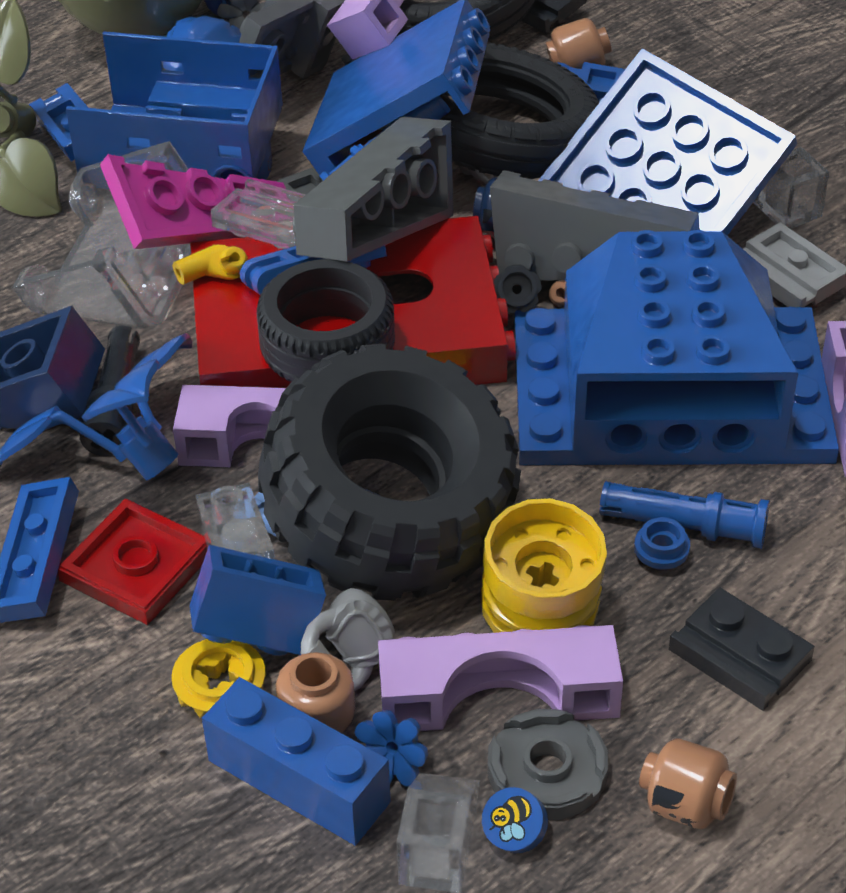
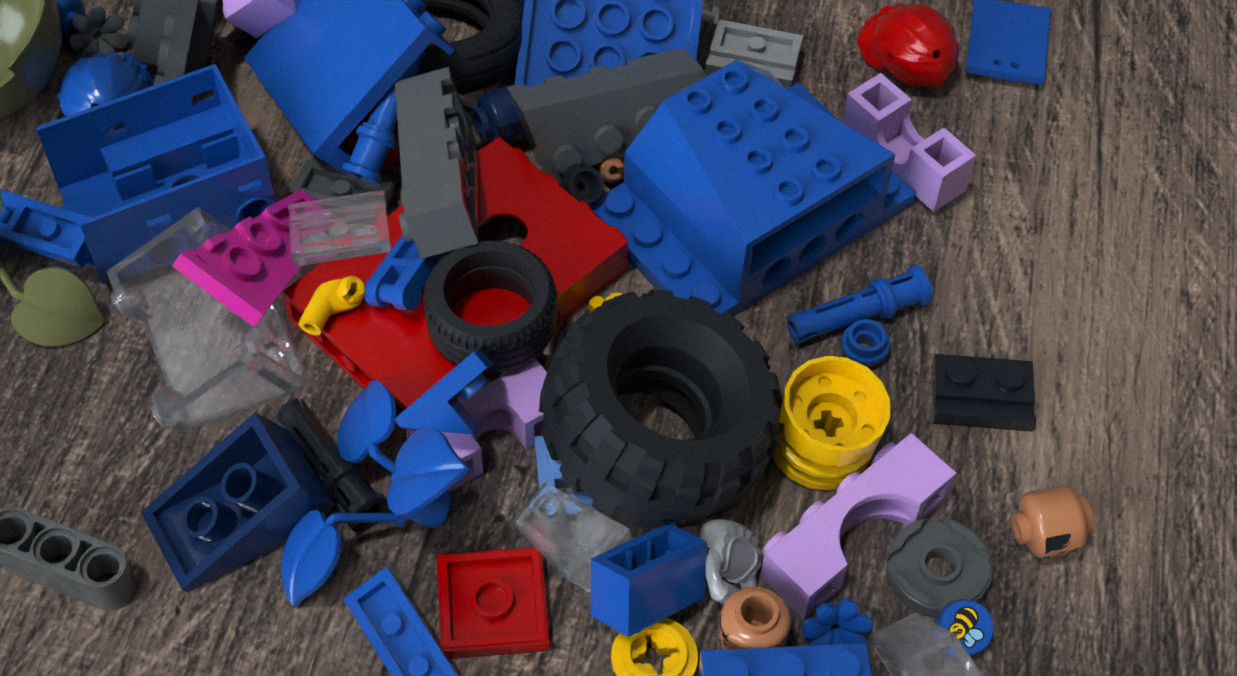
camera: 40 degrees left, 10 degrees up
(216, 365) = (439, 406): none -> blue slope

